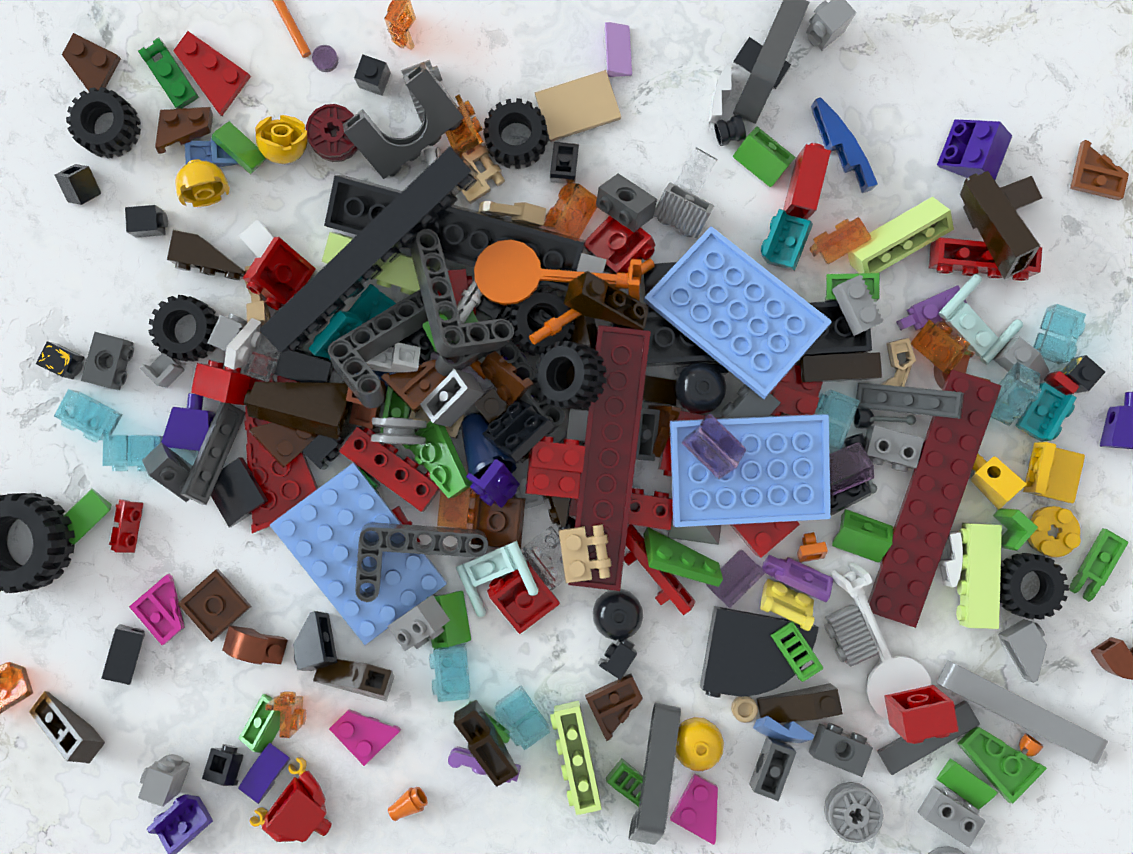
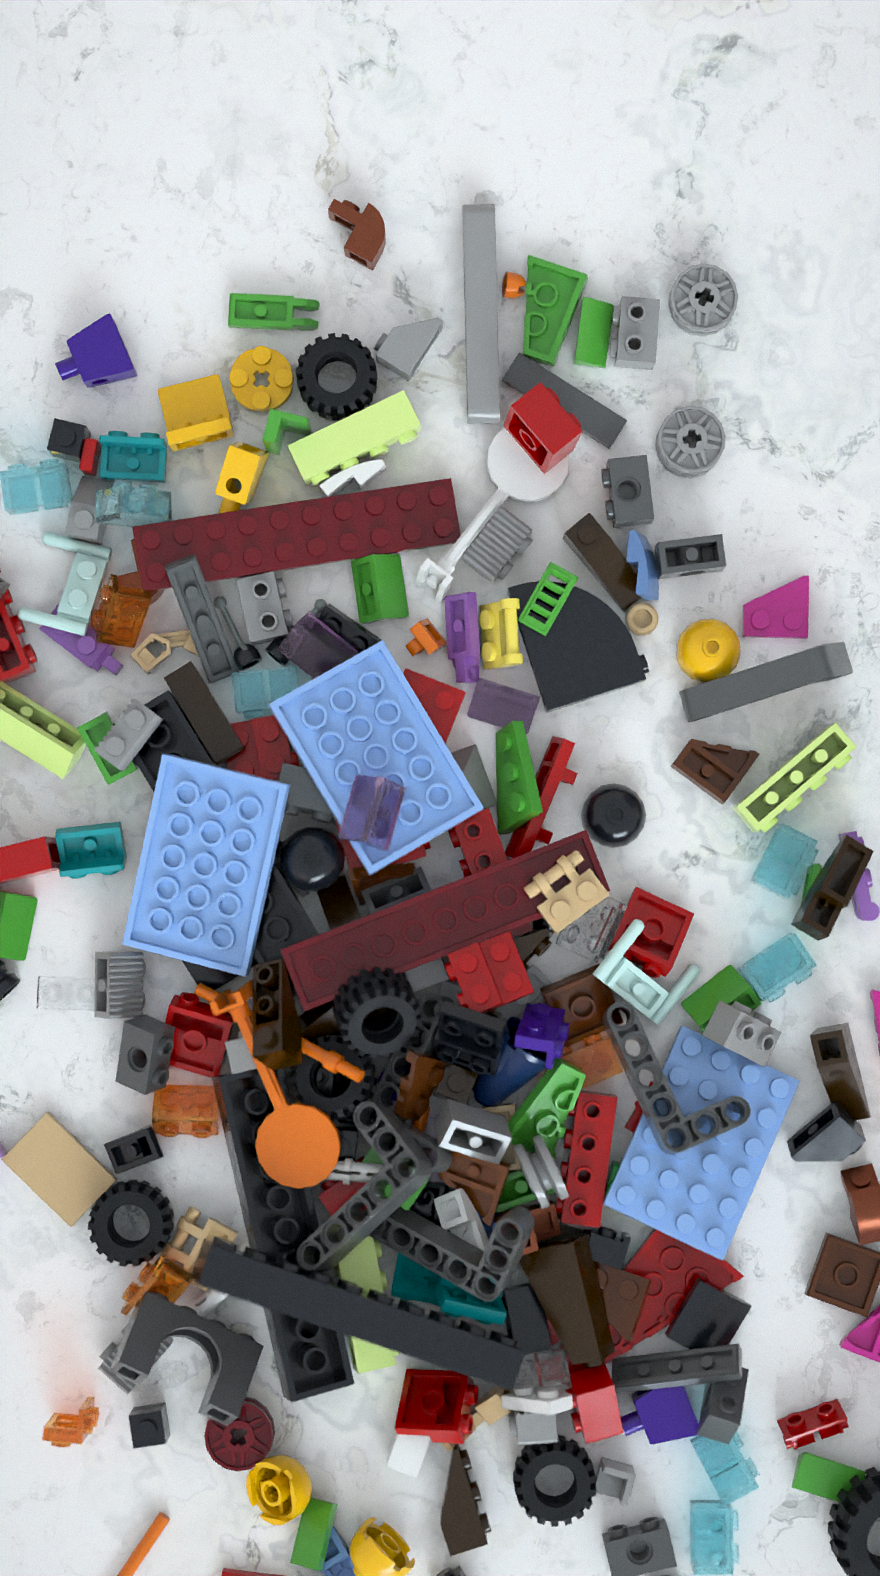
camera: 120 degrees left, 0 degrees up
(325, 58) = (157, 1492): clear purple tile -> none
(520, 212) = (219, 1169): tan piece -> none
(615, 774) = (790, 724): bright green slope -> none
(618, 658) = (660, 789): black brick -> none
(840, 242) = (60, 786): clear orange bracket -> none

